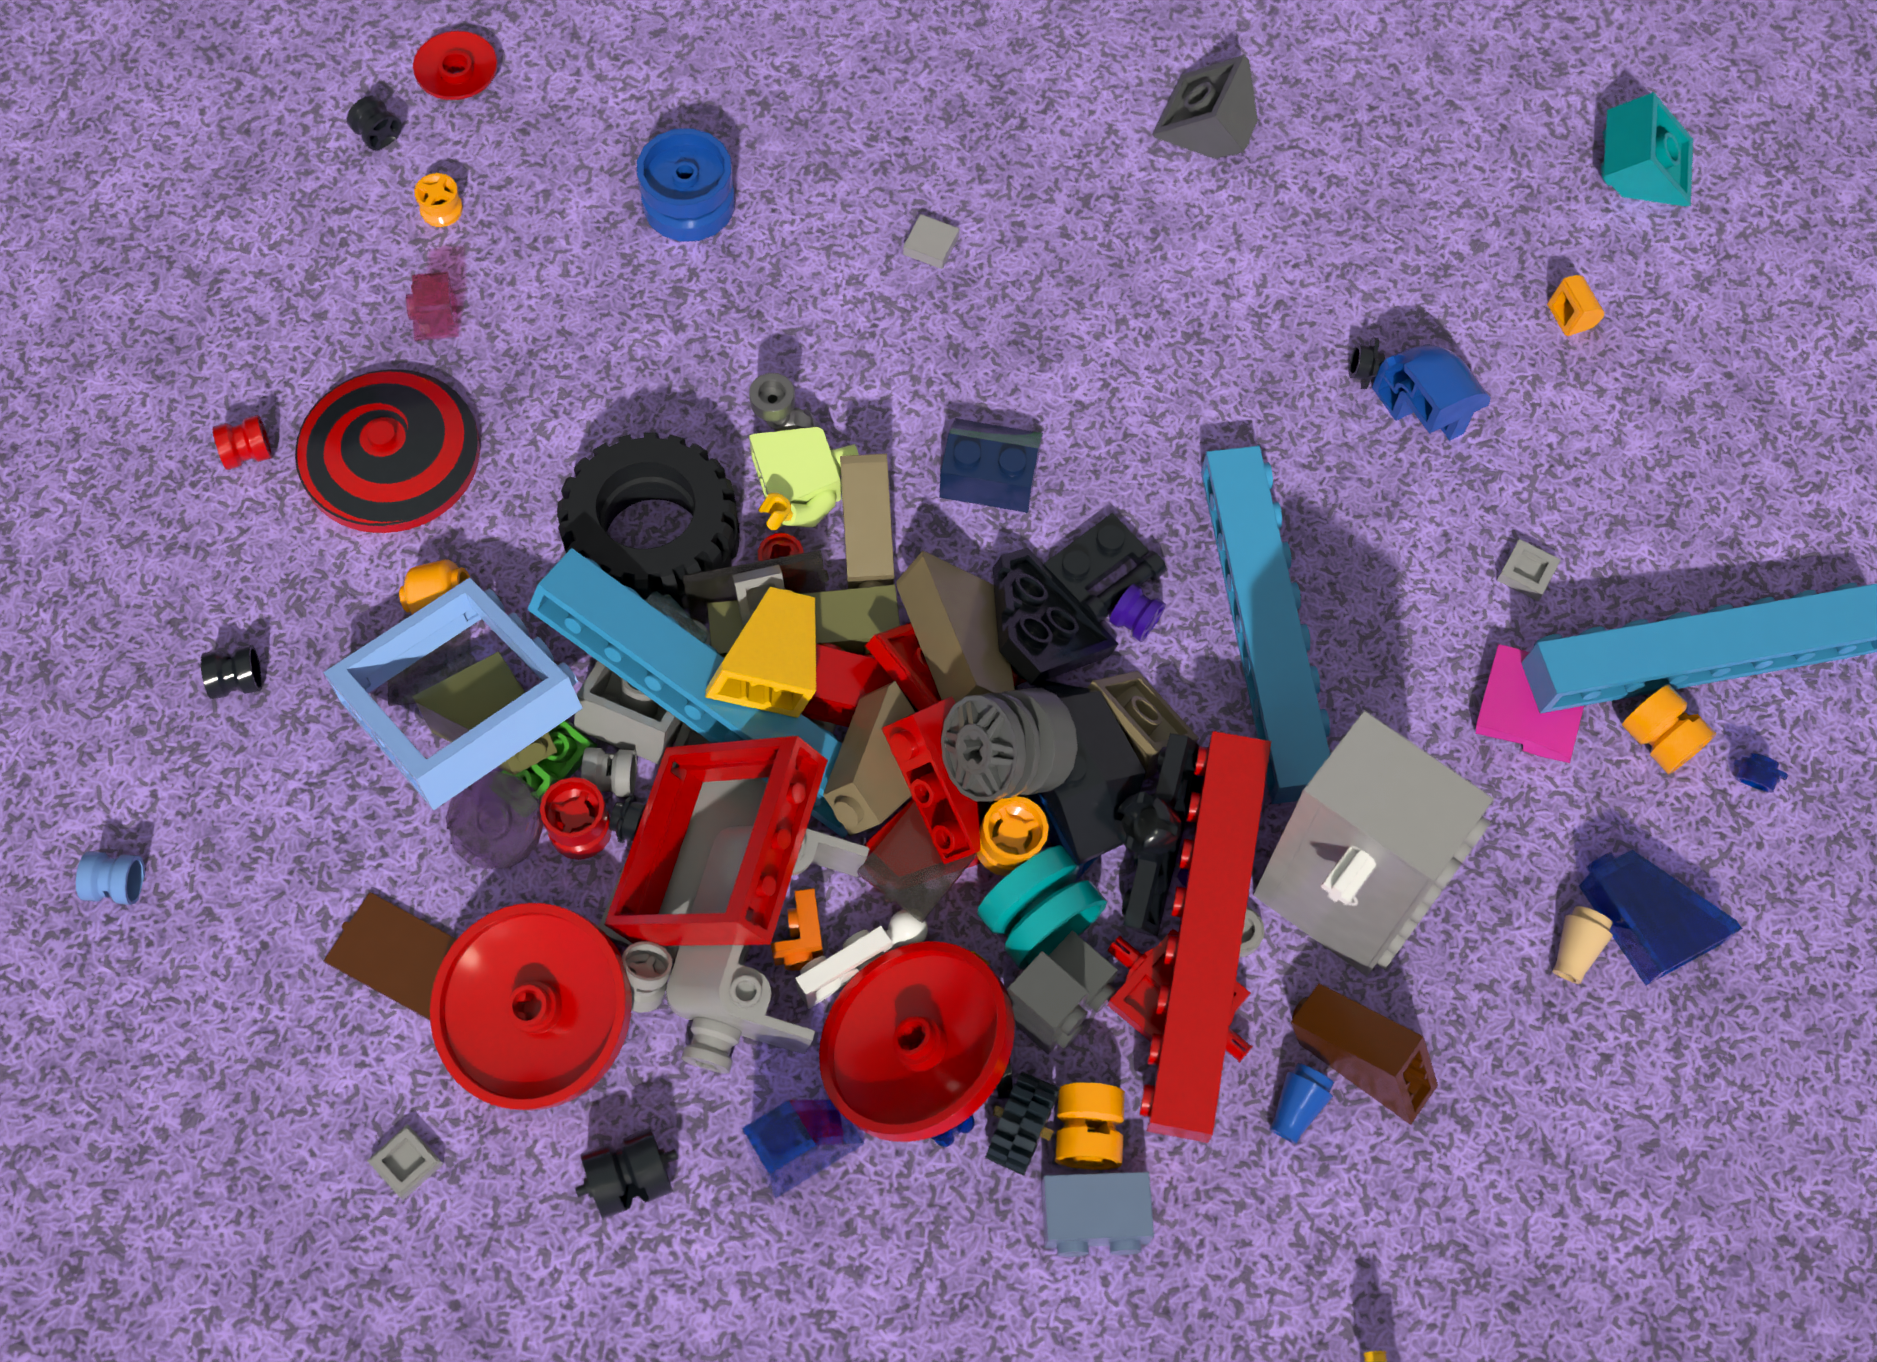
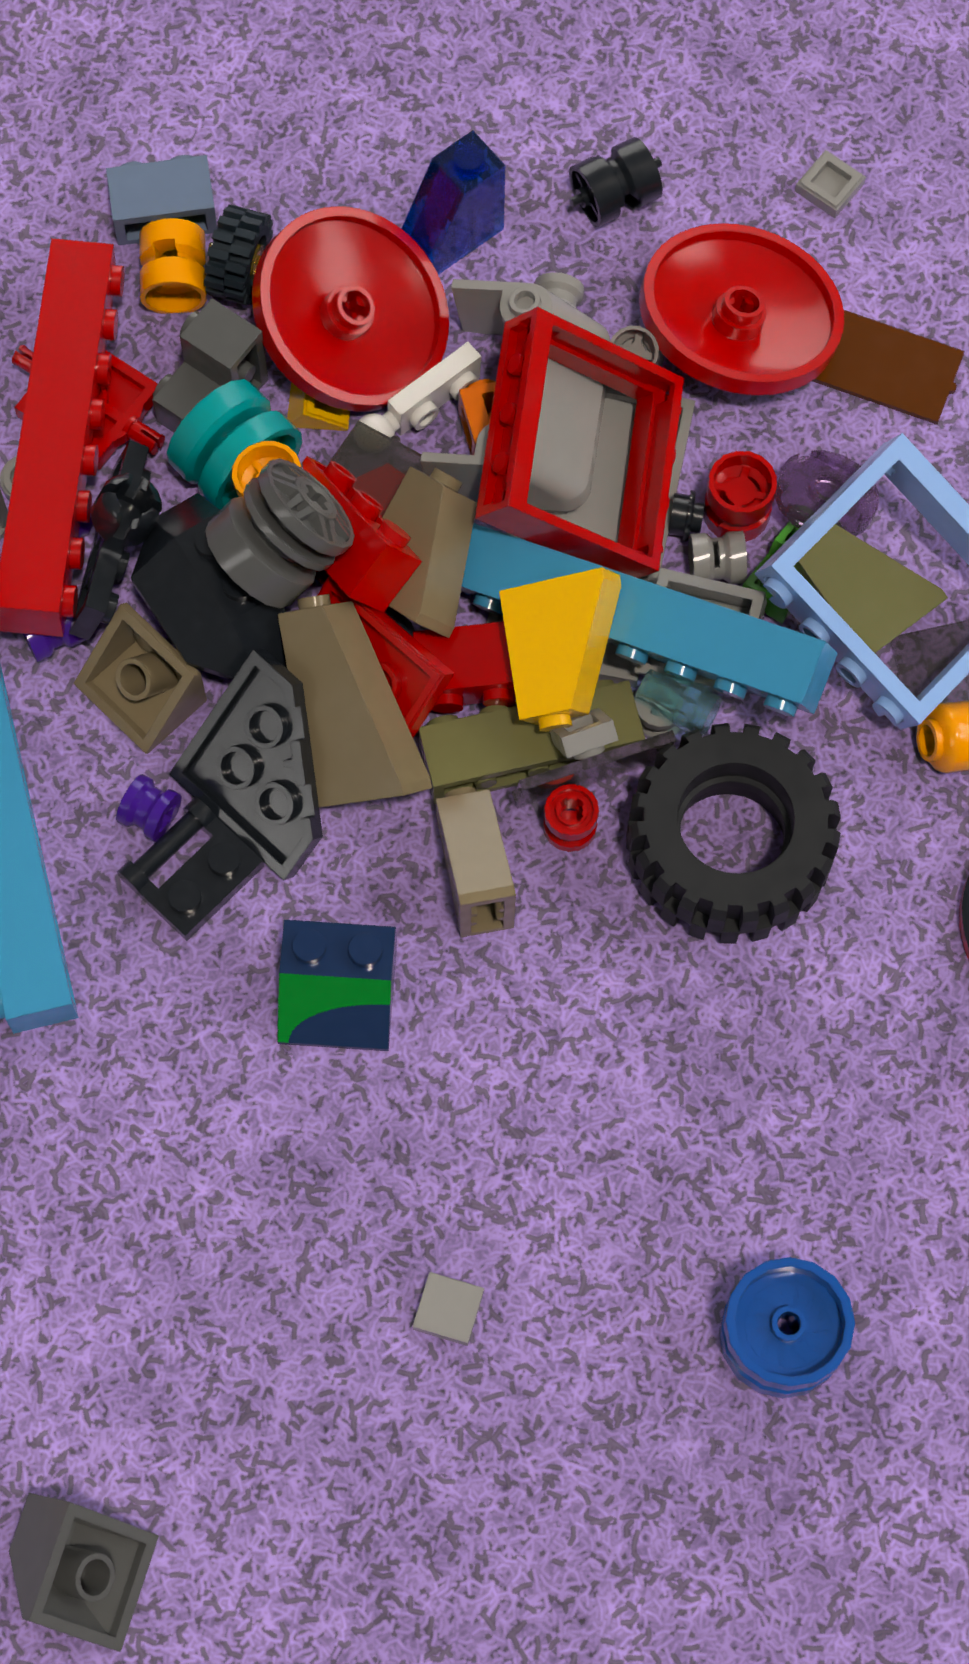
camera: 175 degrees right, 5 degrees up
(795, 461) = (574, 939): yellowish green torso -> none

